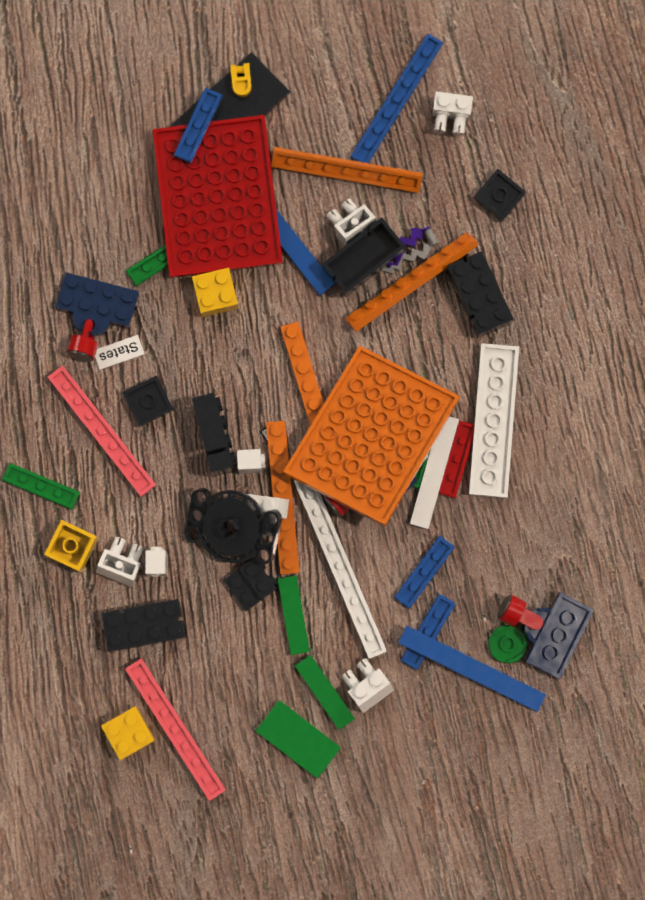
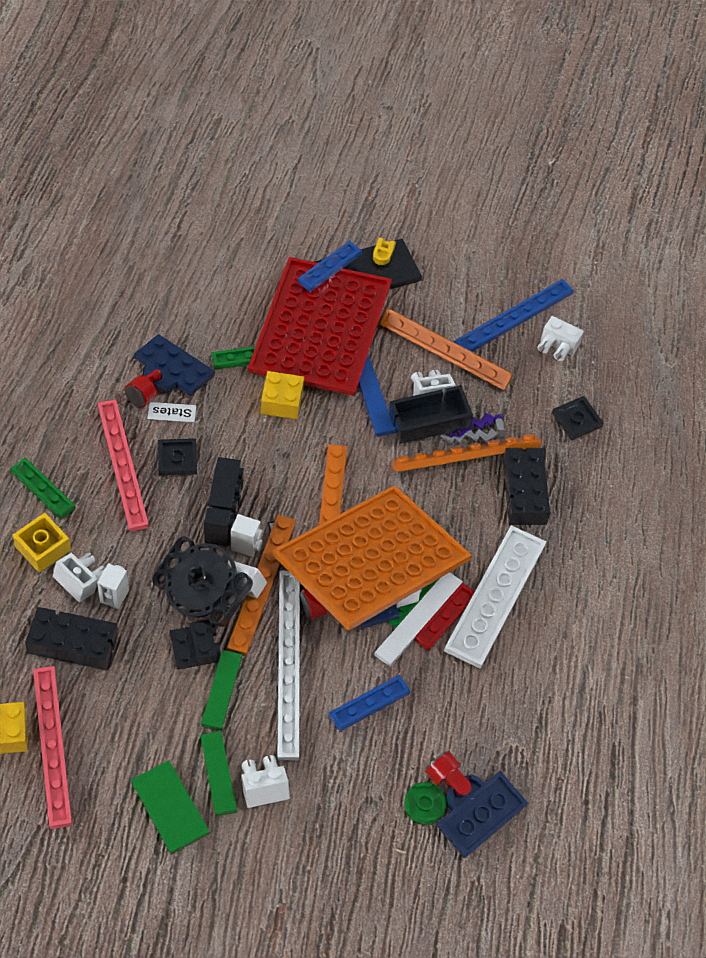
camera: 20 degrees right, 25 degrees down
(431, 627) = (348, 759): blue tile -> none
(471, 668) = (379, 810): blue tile -> none

